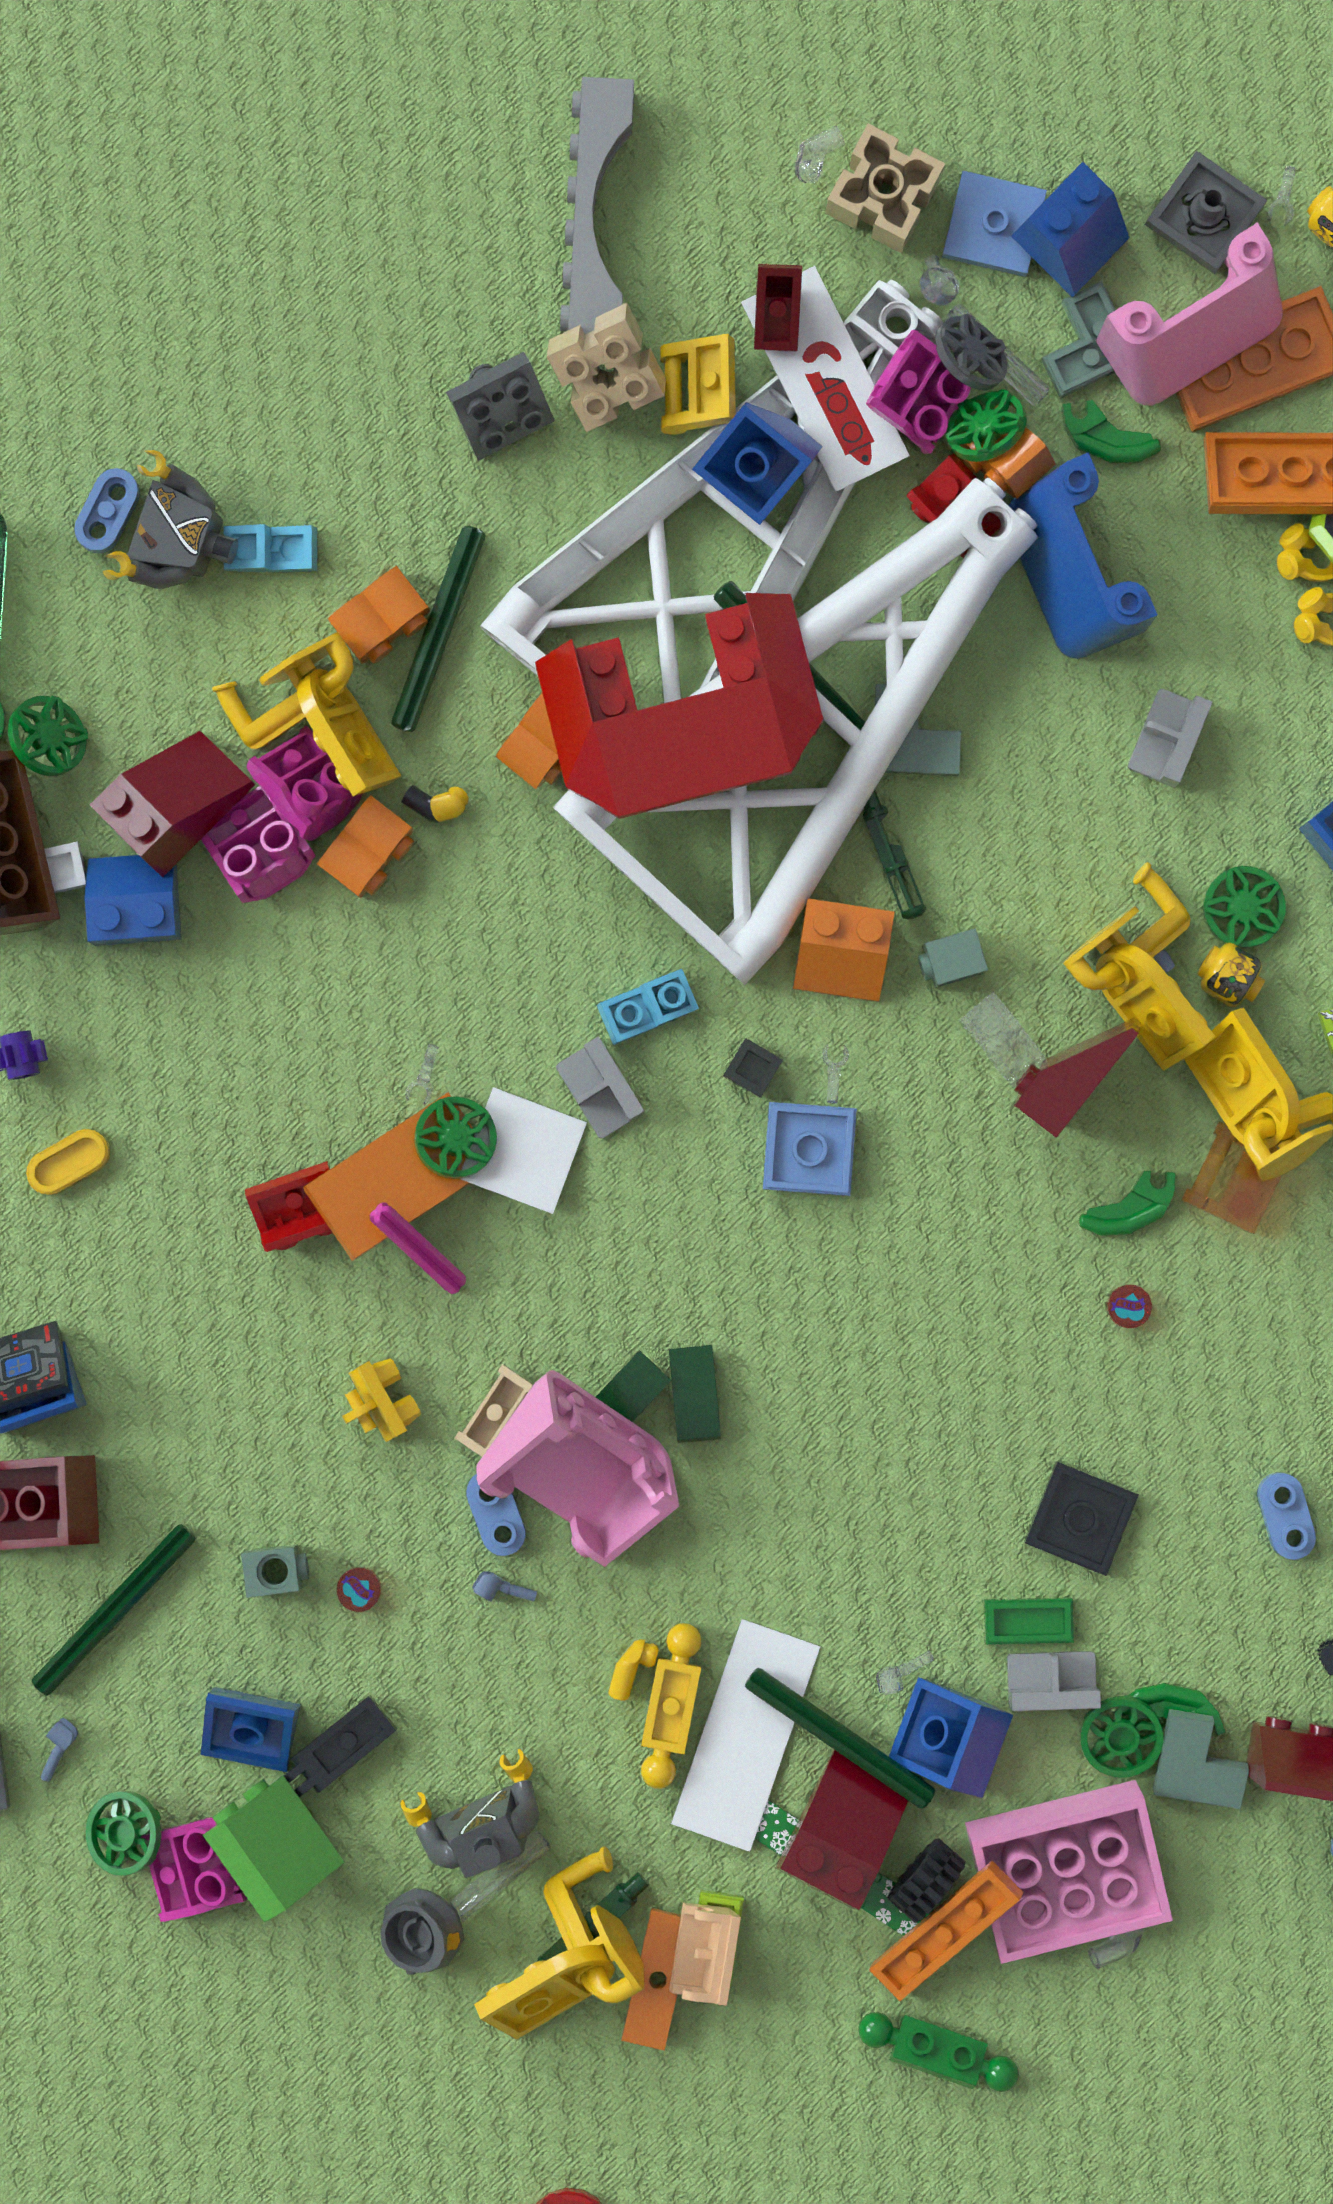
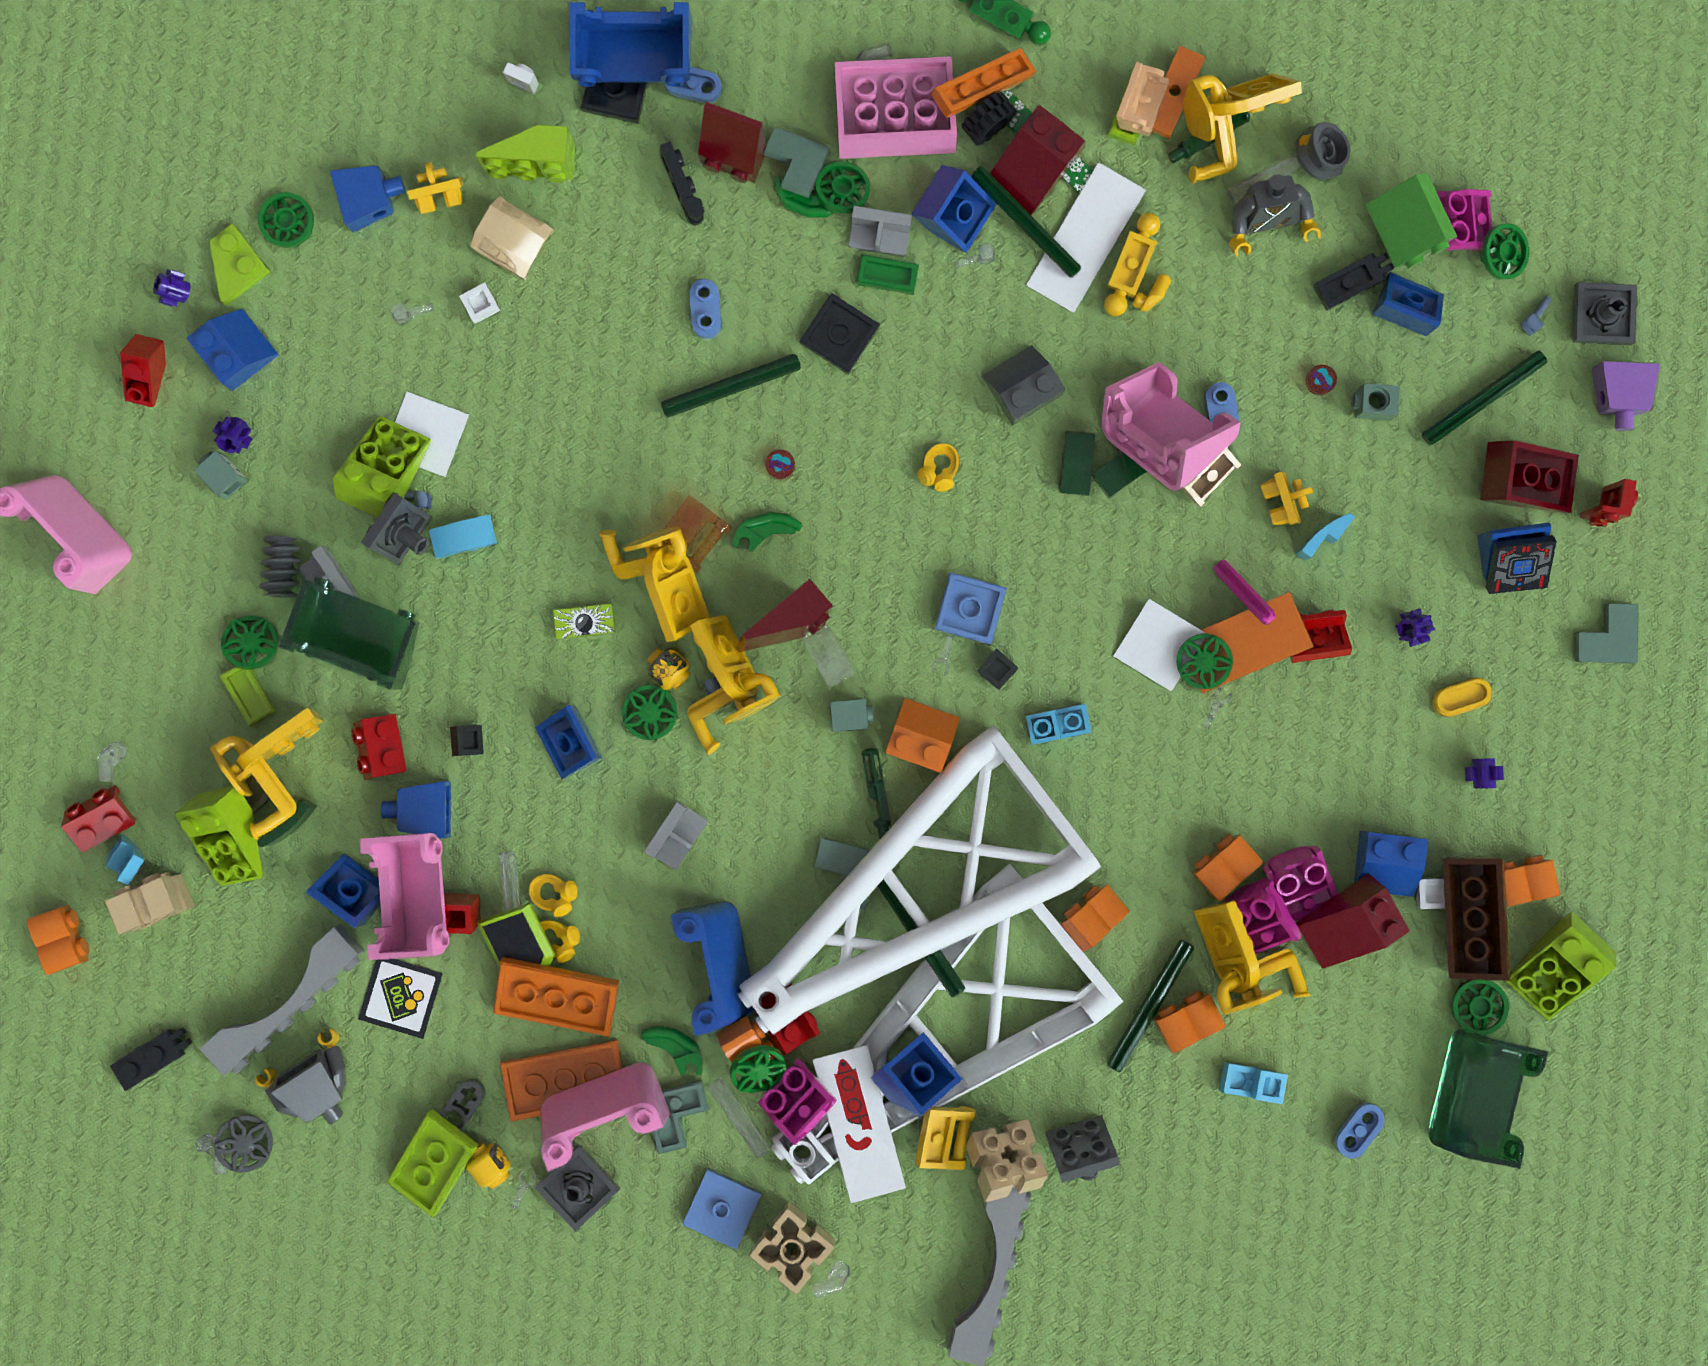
camera: 165 degrees left, 0 degrees up
(47, 735) = (1427, 984): green wheel -> none
(157, 1248) = (1415, 627): none -> dark purple gear
(174, 532) = (1317, 1106): dark grey torso -> none
(305, 1366) = (1329, 532): none -> medium azure slope
(438, 807) = (1173, 884): arm -> none
(489, 1583) = (1234, 367): sand blue hand -> none
(599, 1088) = (1100, 676): light grey panel -> none
(691, 745) = (1001, 888): red slope -> none
(777, 307) = (883, 1178): dark red slope -> none
(797, 1495) = (1024, 384): none -> dark grey slope
(912, 1335) = (943, 481): none -> yellow piece
(938, 283) = (768, 1175): clear piece -> none
(971, 352) = (757, 1121): dark grey wheel -> none
(1074, 230) = (669, 1192): blue slope -> none
(1225, 1408) = (730, 385): none -> dark green axle

